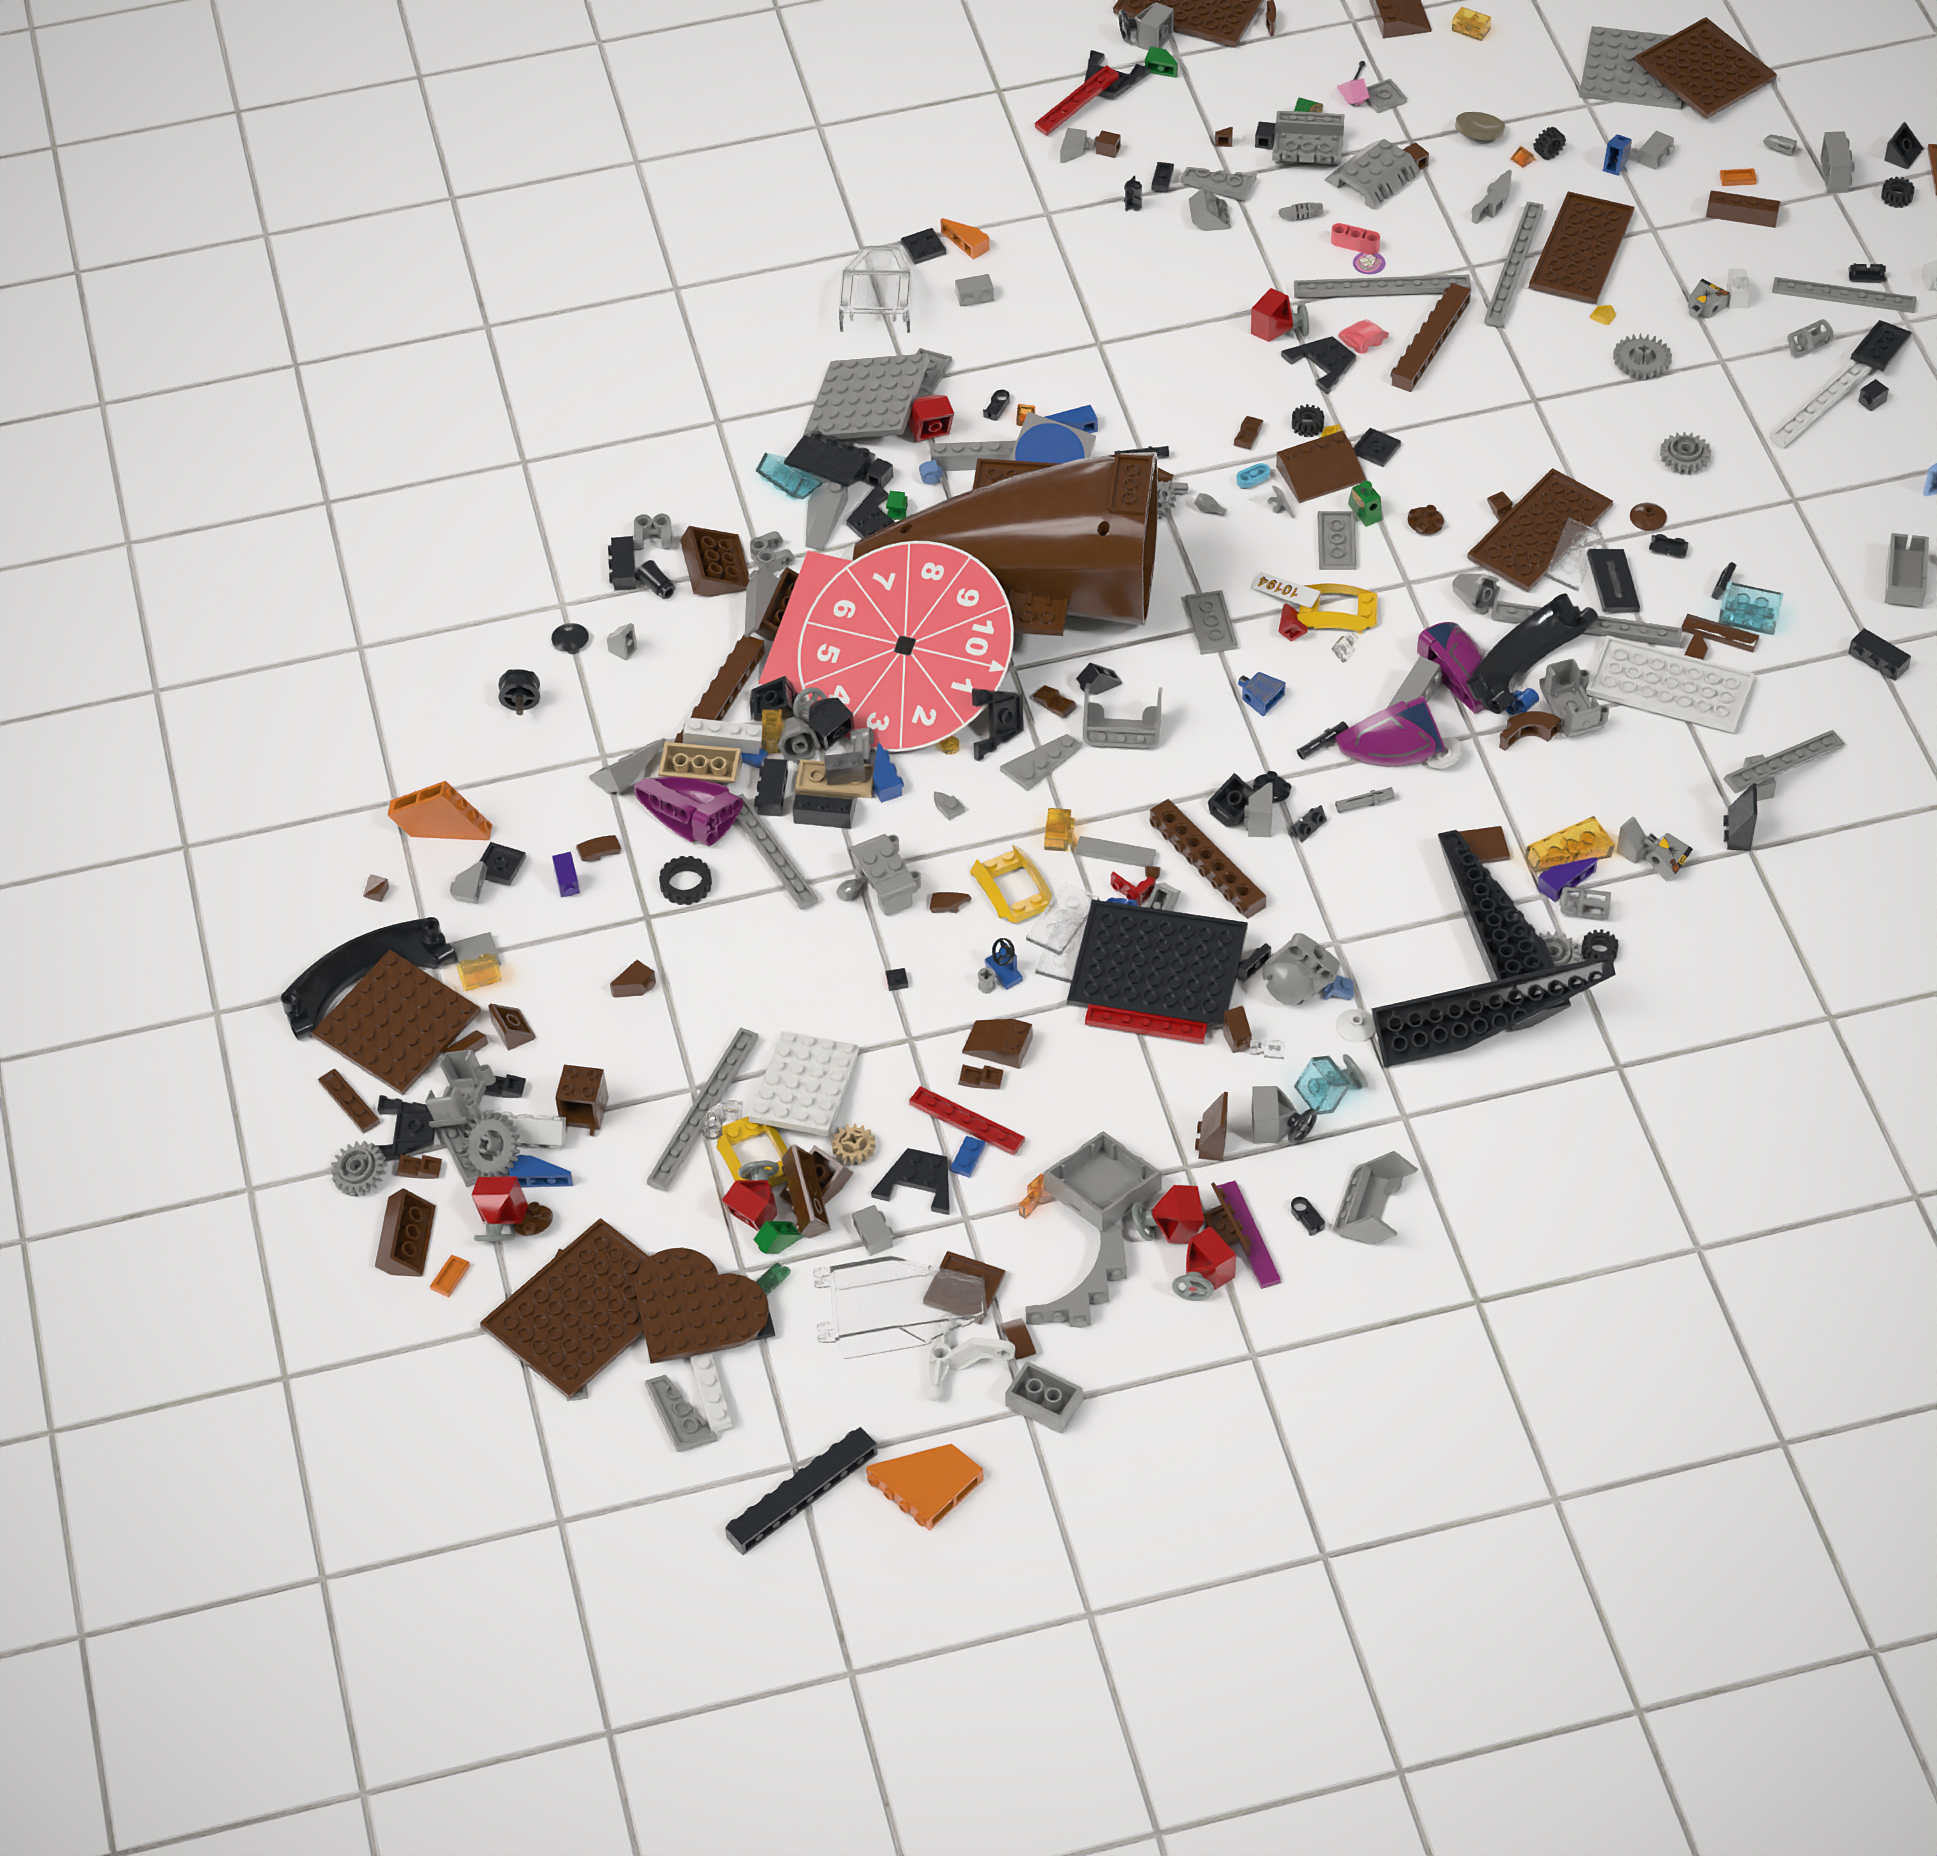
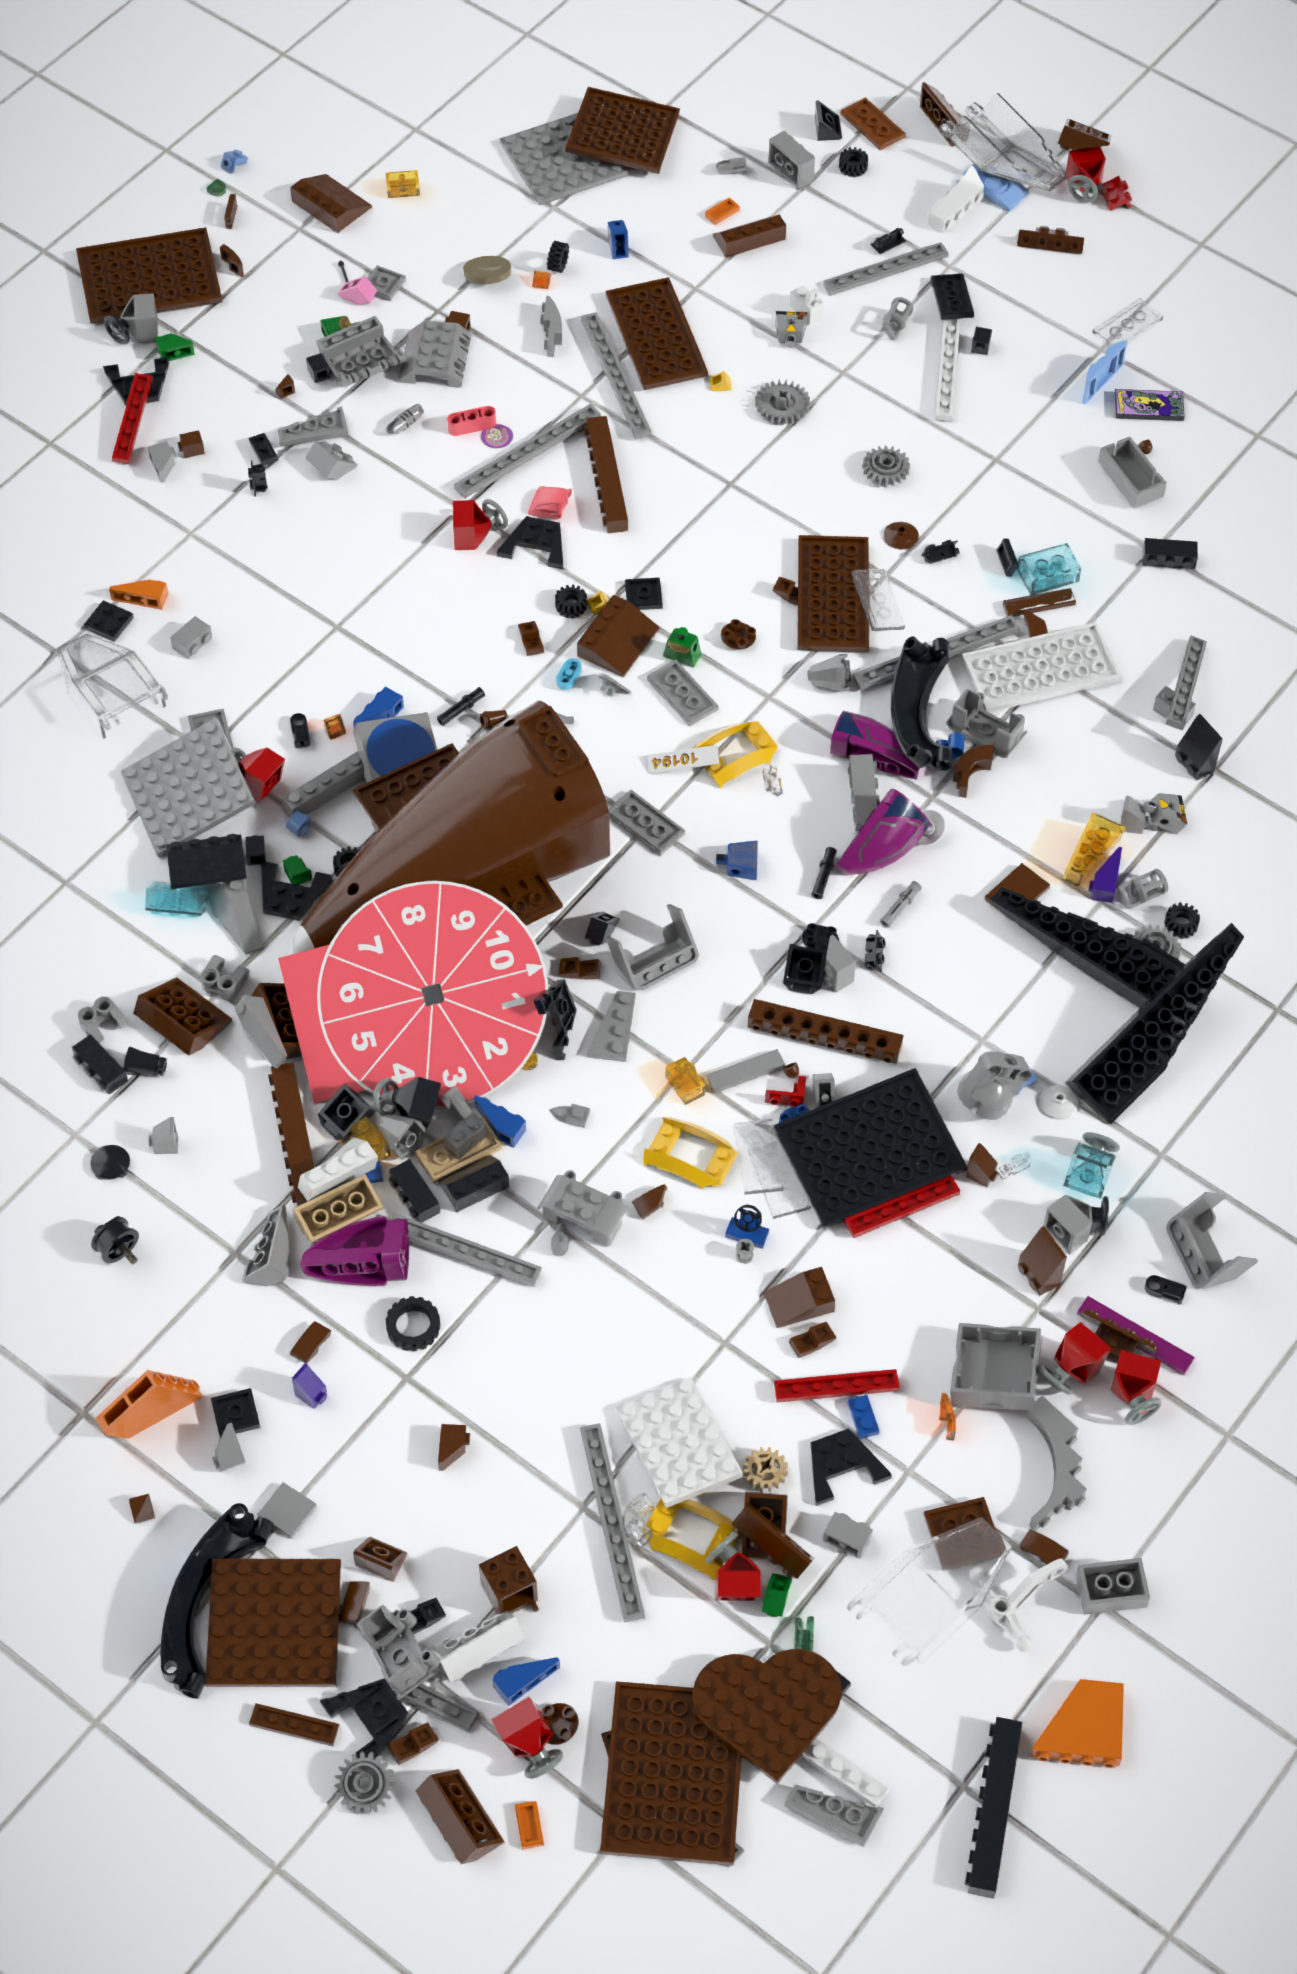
camera: 40 degrees left, 5 degrees up
(478, 972) = (309, 1527): clear yellow brick -> none
(482, 1142) = (489, 1690): light grey gear -> none
(896, 979) = (668, 1297): black plate -> none
(1254, 962) = (939, 1091): black plate -> none
(1289, 624) = (716, 791): red bracket -> none
(1608, 599) = (939, 624): black piece -> none
(1656, 150) = (643, 220): light grey brick -> none

